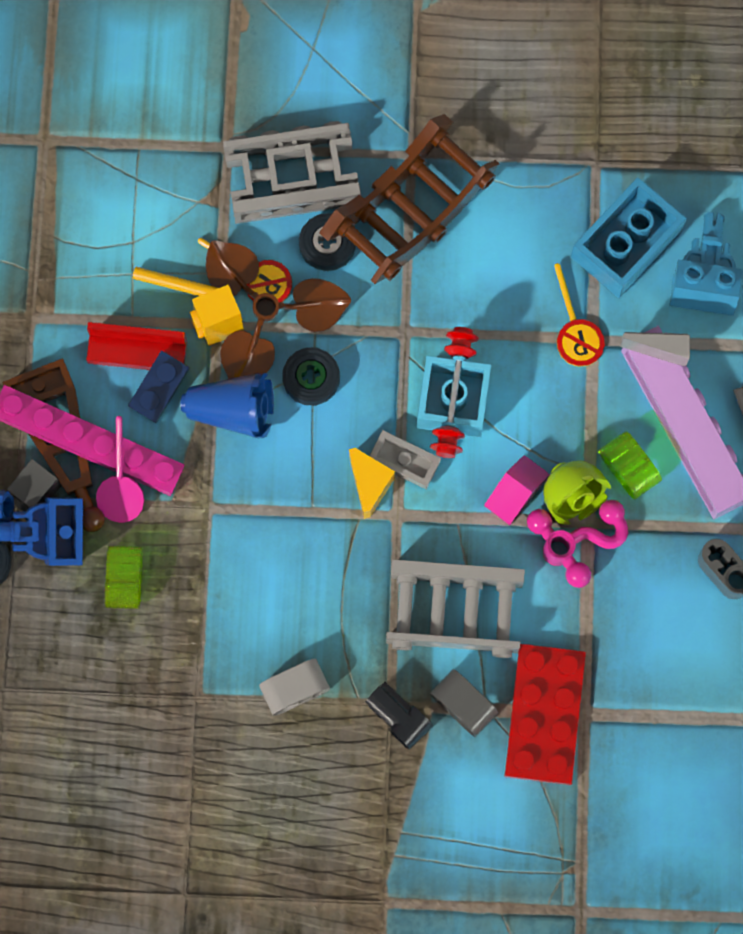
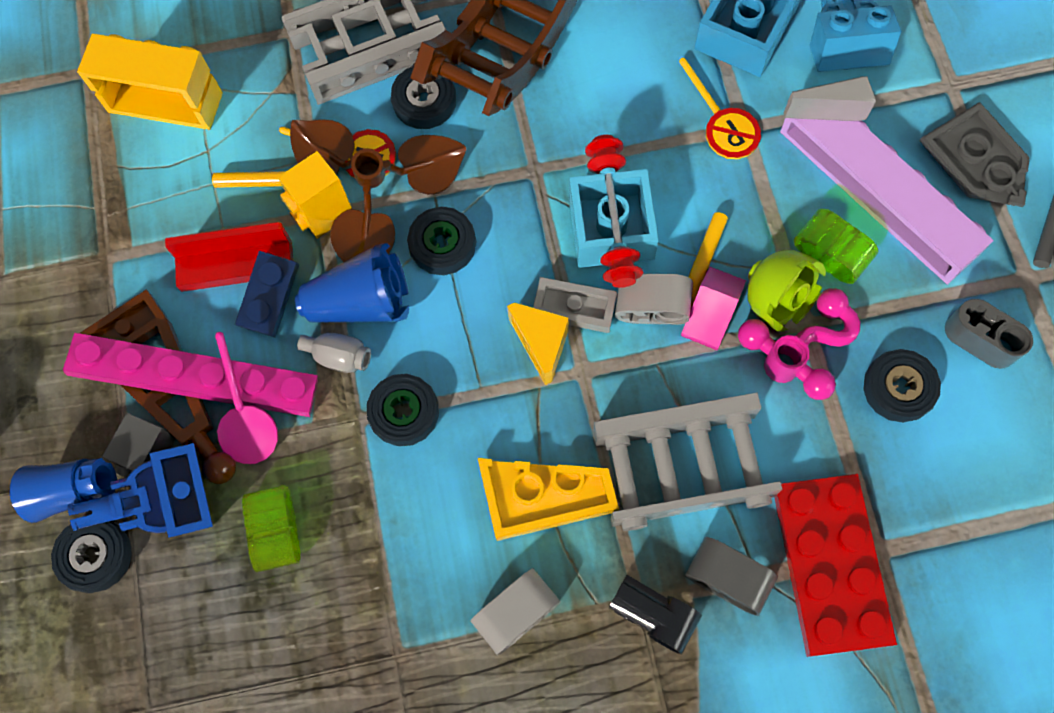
camera: 10 degrees left, 5 degrees down
(102, 175) = (151, 80): none -> yellow piece
(204, 449) = (337, 351): none -> light grey plant
(229, 511) = (384, 418): none -> black bush
(336, 606) = (542, 497): none -> yellow wing
(469, 473) = (655, 300): none -> light grey beam
(518, 450) = (706, 251): none -> yellow bar
(642, 575) = (918, 373): none -> black bush

